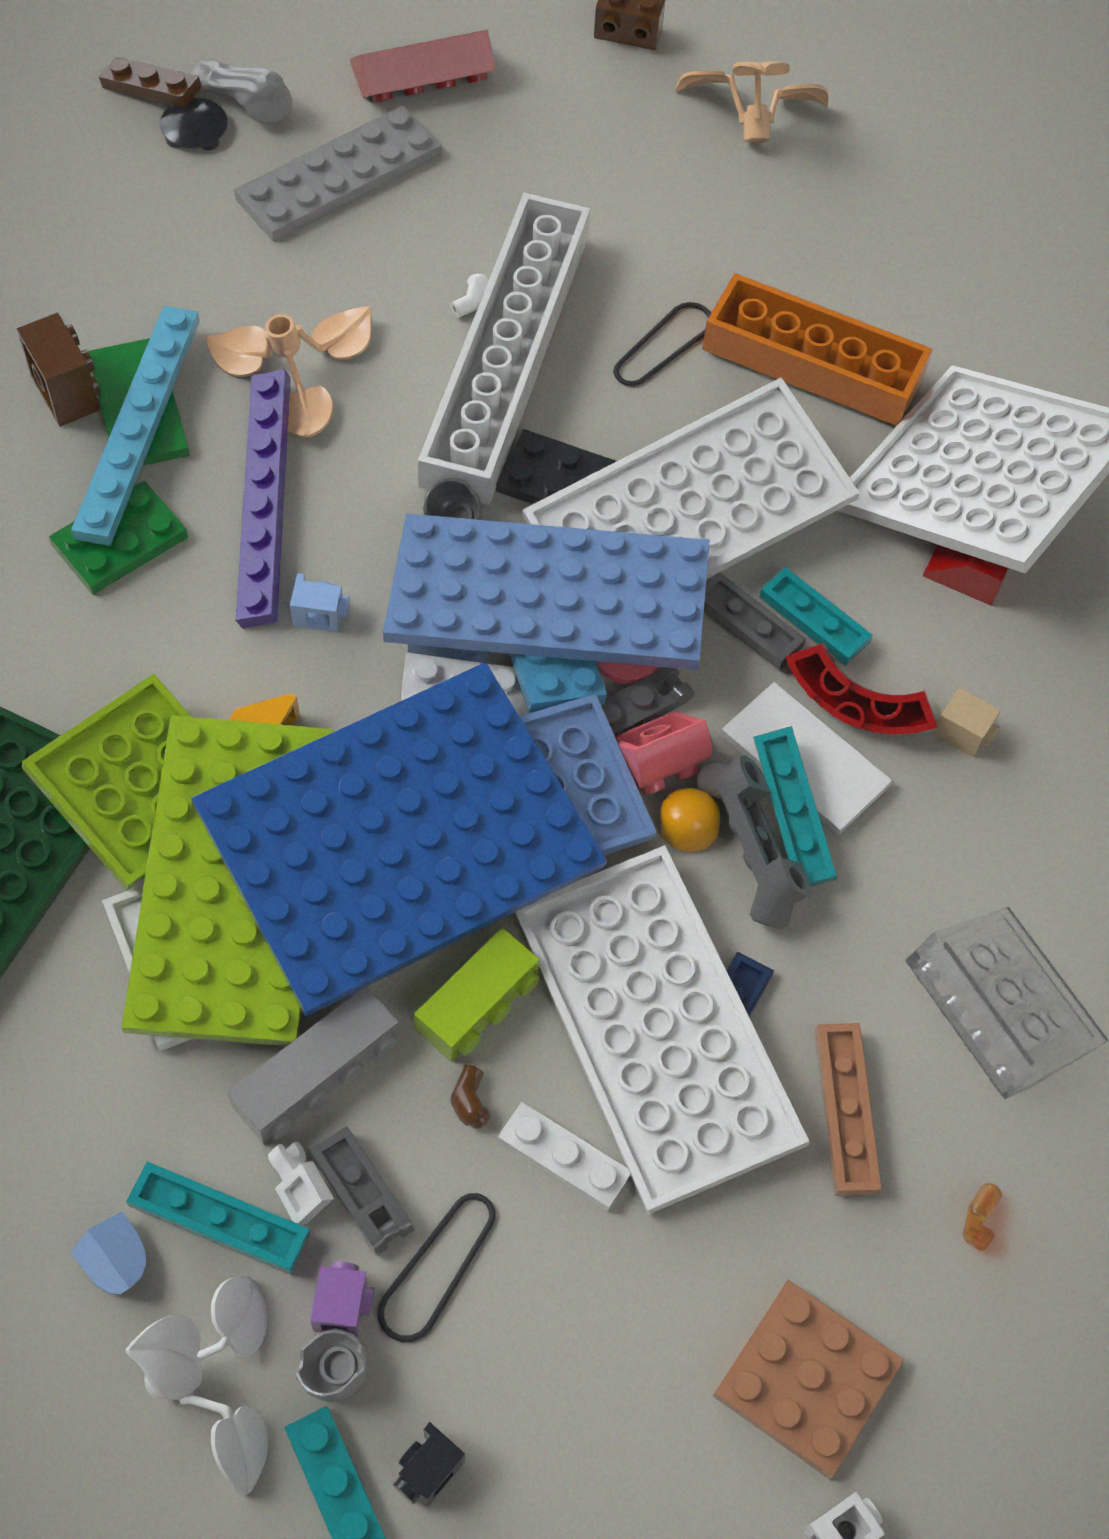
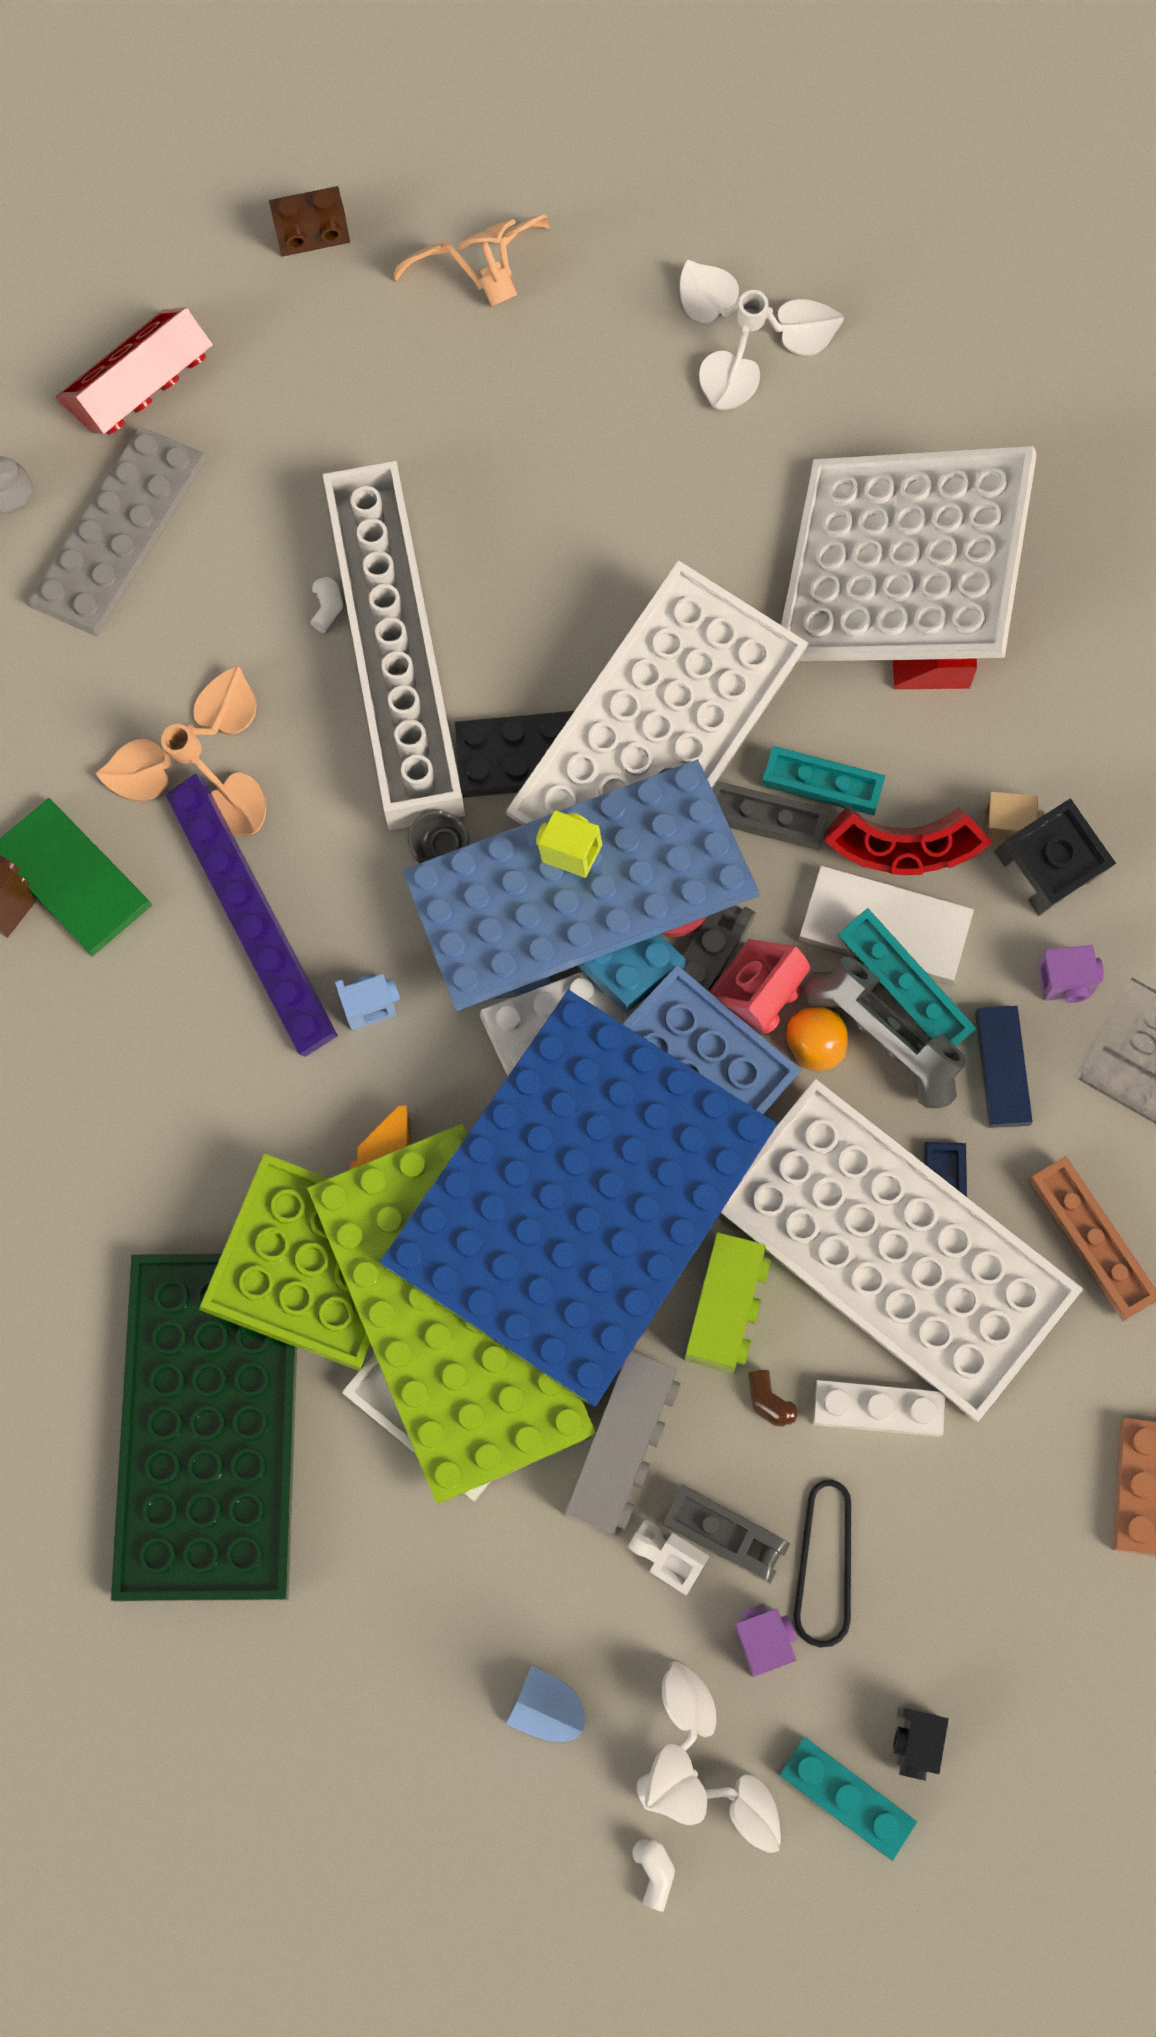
camera: 20 degrees left, 10 degrees up
(126, 1452) = (659, 1870): none -> white arm
(135, 427) = (88, 904): medium azure plate -> none
(142, 534) = (136, 1025): green plate -> none
(218, 1217) = (617, 1625): teal plate -> none
(332, 1365) = (792, 1702): light grey hair -> none
(555, 548) = (569, 843): none -> neon yellow brick
(650, 334) = (515, 559): black piece -> none
(816, 349) = (684, 505): orange brick -> none
(845, 924) = (1003, 1067): none -> dark blue tile
(935, 205) = (728, 378): none -> white plant
(951, 873) = (1070, 973): none -> medium lavender brick
(990, 766) = (1056, 855): none -> black panel

